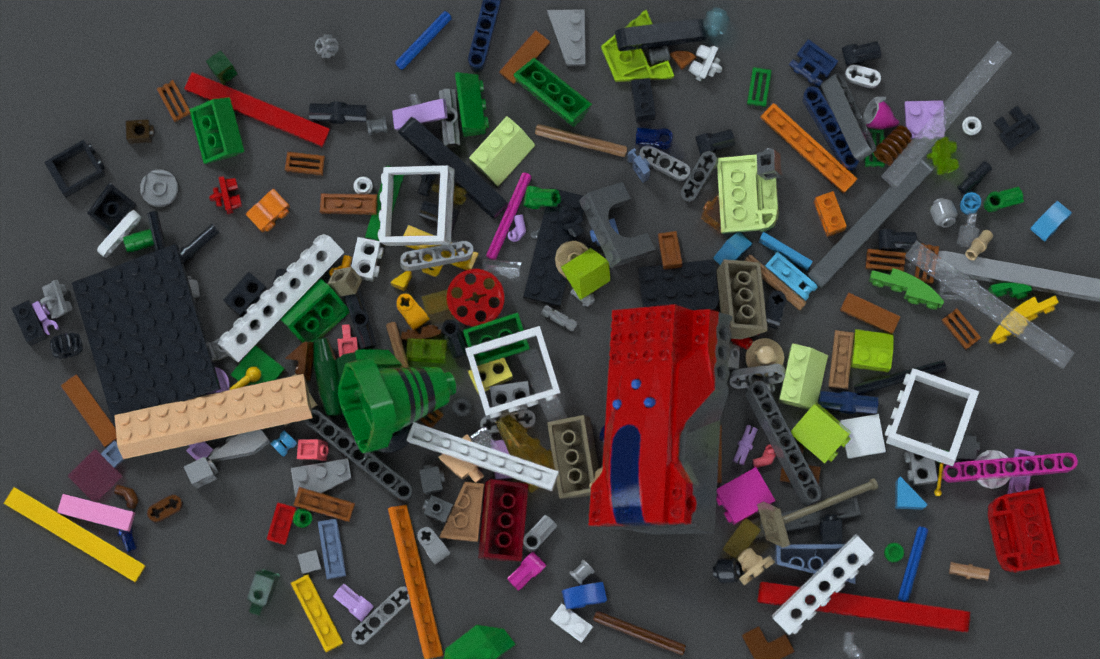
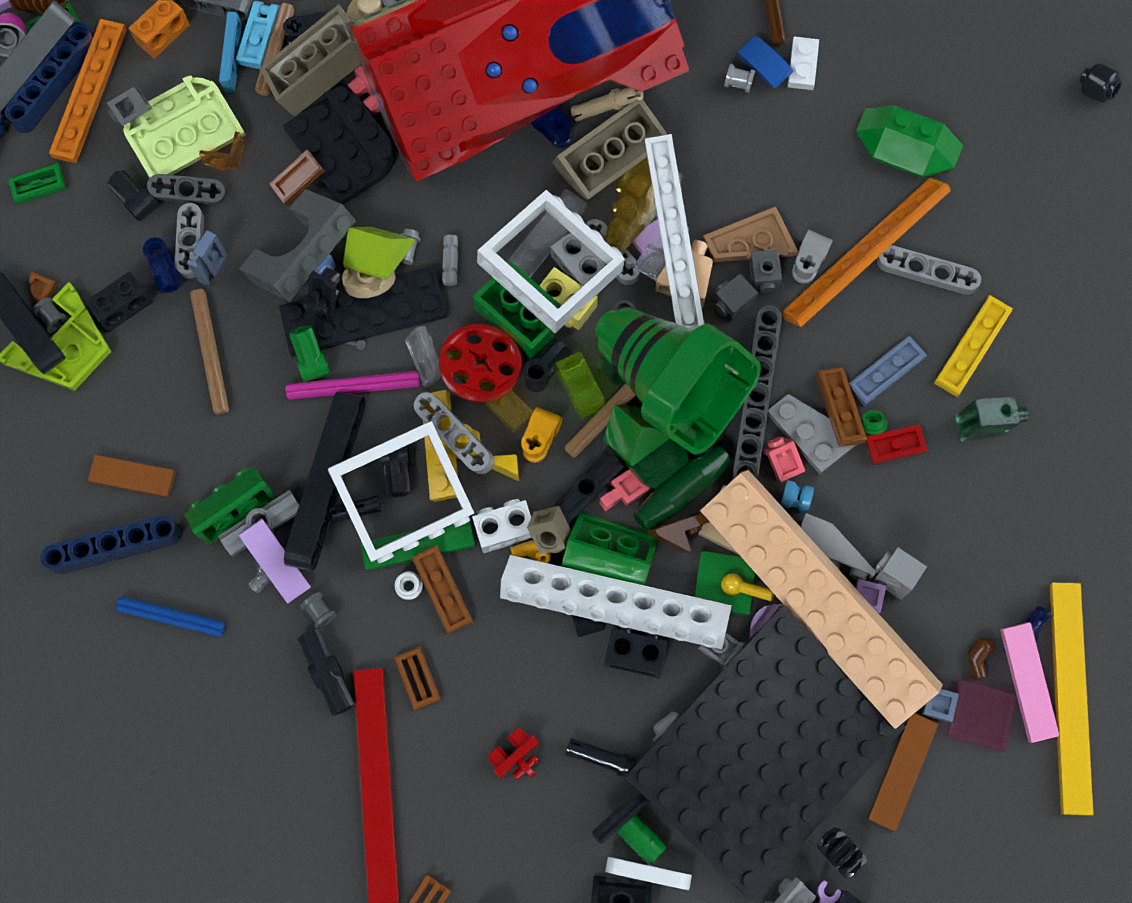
camera: 115 degrees left, 5 degrees down
(159, 188) = (555, 857): light grey tile -> none
(162, 504) = (970, 594): reddish brown beam -> none
(216, 130) = (434, 820): green slope -> none
(221, 67) = (341, 865): dark green brick -> none
(268, 211) = (507, 687): orange brick -> none
(309, 562) = (919, 387): light grey tile -> none
(327, 46) = (240, 737): light grey gear -> none
(357, 605) = (936, 302): lavender piece -> none
(429, 332) = (559, 400): reddish brown slope -> none
(458, 194) = (360, 472): clear yellow bar -> none
(501, 151) = (272, 437): yellowish green slope -> none
(503, 520) = (736, 189): dark red slope -> none
(520, 229) = (363, 363): lavender arm -> none
(530, 568) = (769, 135): dark pink piece -> none
(540, 533) = (723, 146): light grey piece -> none
(553, 91) = (162, 409): green slope -> none
(570, 33) = (73, 436): light grey wing -> none
(708, 55) = (34, 252): white hips -> none
(733, 248) = (261, 111): dark azure slope -> none

